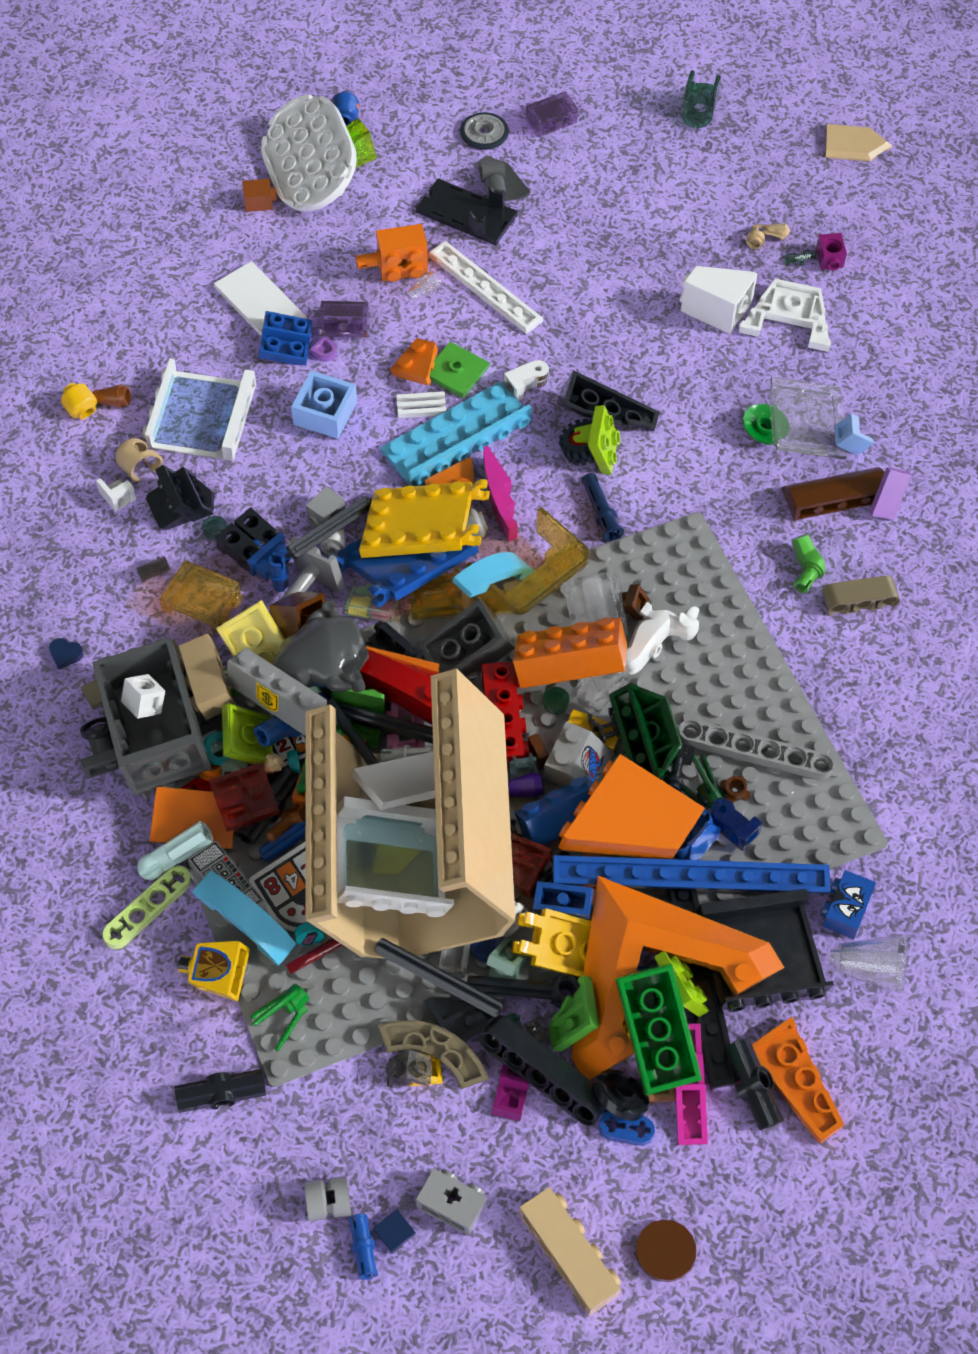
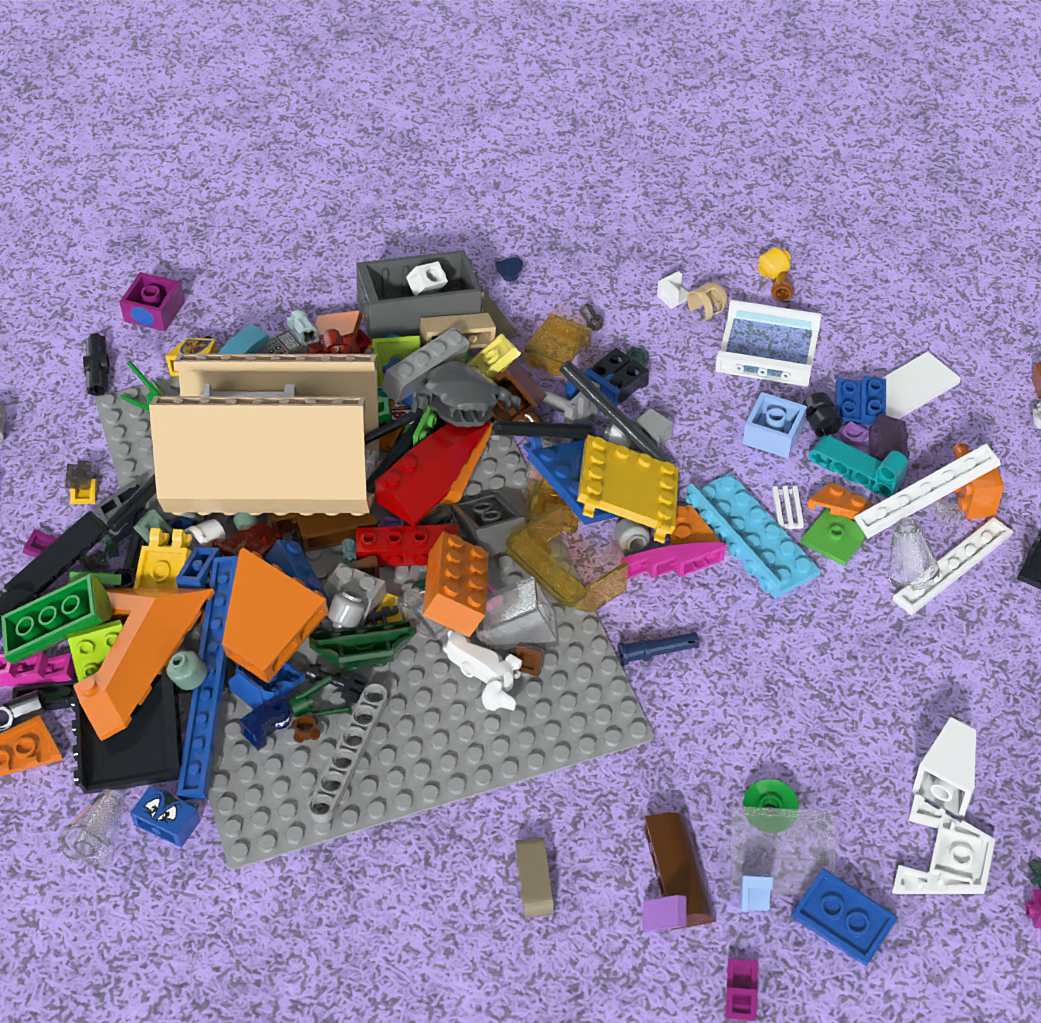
camera: 95 degrees right, 10 degrees down
(116, 1035) = (152, 301): none -> magenta brick
(144, 904) = (257, 310): yellowish green beam -> none
(179, 498) = (664, 328): black piece -> none
(300, 367) = (822, 414): none -> black wheel
(368, 580) = (542, 429): none -> black axle
(371, 346) = (858, 467): none -> teal beam
(390, 640) = (494, 473): black hinge -> none
(423, 284) = (927, 490): none -> white tile
(437, 1042) = (107, 482): dark tan tile -> none
(491, 569) = (559, 532): medium azure slope -> none
(496, 307) = (911, 557): none -> clear cone
(526, 378) = (823, 589): white leg -> none
(526, 786) = (330, 559): dark purple cone -> none
(582, 394) = (785, 648): black wedge -> none
(592, 440) = (735, 640): lime plate -> none
(603, 748) = (346, 610): none -> light grey head
(706, 876) = (186, 669): none -> sand green head
(810, 561) = (581, 832): bright green arm -> none
(860, 381) = (844, 917): none -> blue tile
(936, 453) = (741, 990): none -> magenta slope

